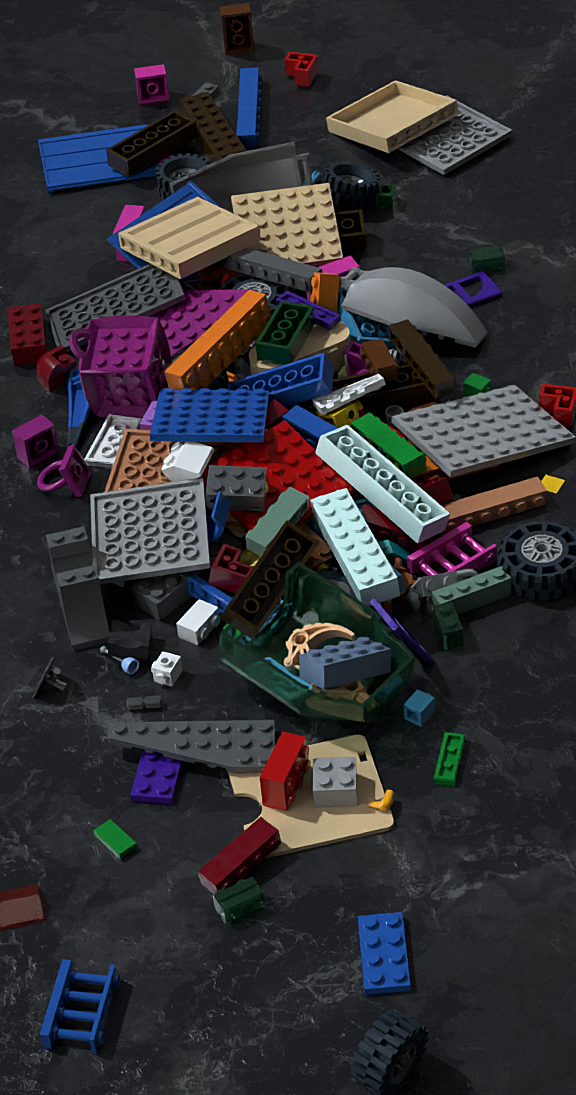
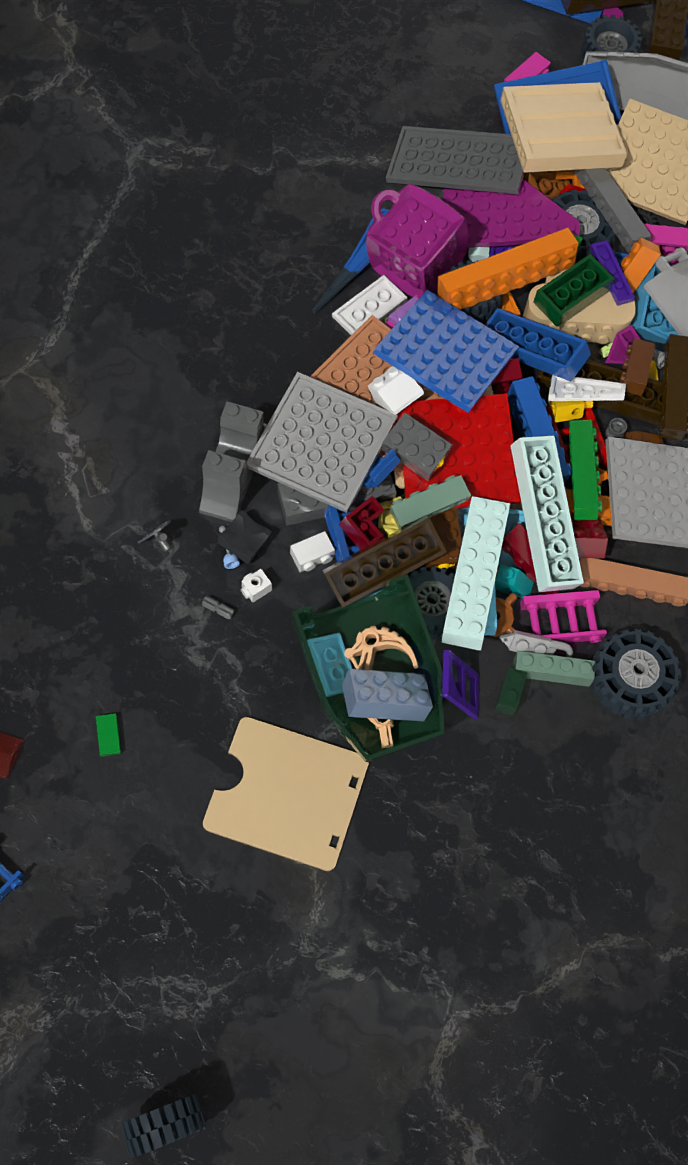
camera: 20 degrees right, 25 degrees up
(27, 333) = (371, 145): dark red brick -> none
(35, 441) = (302, 271): magenta brick -> none
(52, 366) = (364, 194): dark red brick -> none
(73, 470) = (310, 326): magenta tile -> none
(156, 778) = (188, 684): dark purple plate -> none
(233, 745) = (246, 695): dark grey wing -> none
(238, 900) = (160, 867): clear green brick -> none
(240, 856) = (187, 825): dark red brick -> none
(284, 771) = (274, 766): red brick -> none
(335, 782) = (309, 800): light grey brick -> none
(383, 953) = (239, 997): blue plate -> none
(386, 803) = (340, 846): light orange animal -> none
(419, 708) = (431, 763): dark azure brick -> none
(449, 759) = (422, 831): green tile -> none

